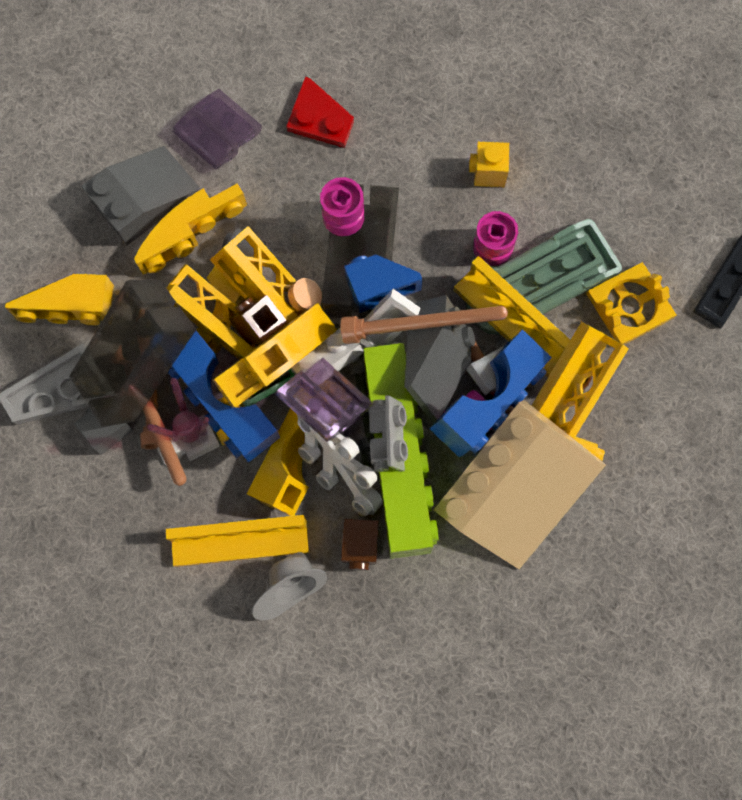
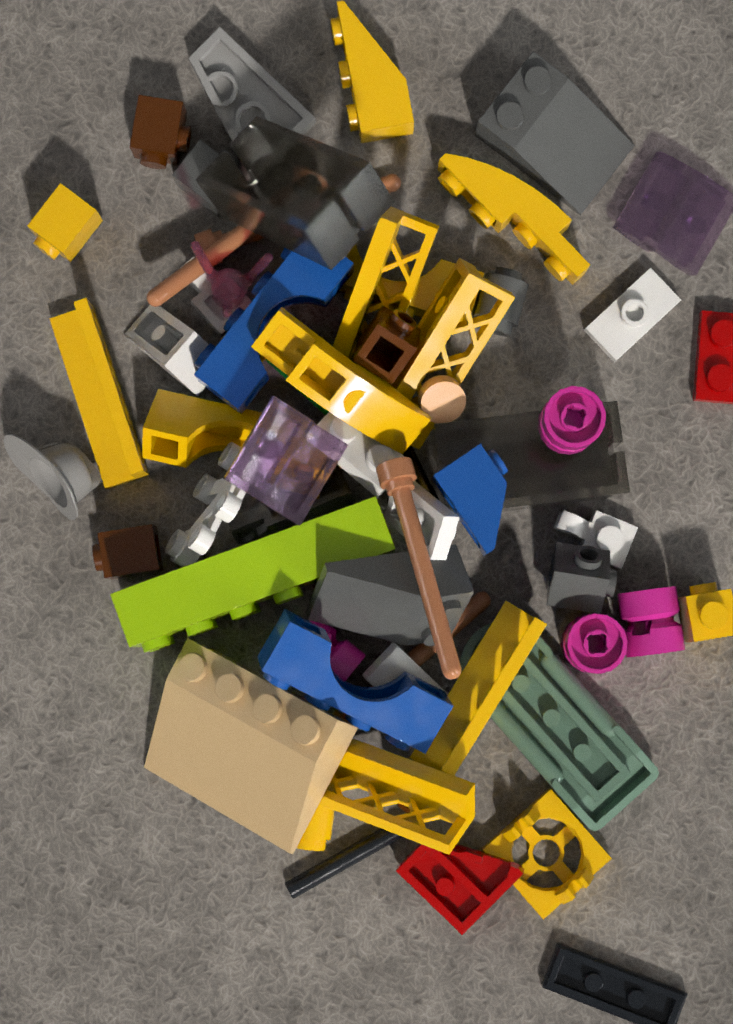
camera: 75 degrees right, 10 degrees up
(59, 454) = (159, 132): none -> reddish brown brick
(106, 537) = (64, 224): none -> yellow brick
(217, 479) = (169, 345): none -> white slope
(278, 171) = (632, 315): none -> white plate
(391, 450) = (238, 564): light grey hinge -> none
(421, 222) = (600, 532): none -> white plate
(448, 238) = (580, 578): none -> dark grey brick
(477, 194) = (660, 607): none -> dark pink wheel
(612, 442) = (340, 862): none -> black bar
(643, 364) = (459, 883): none -> red wing

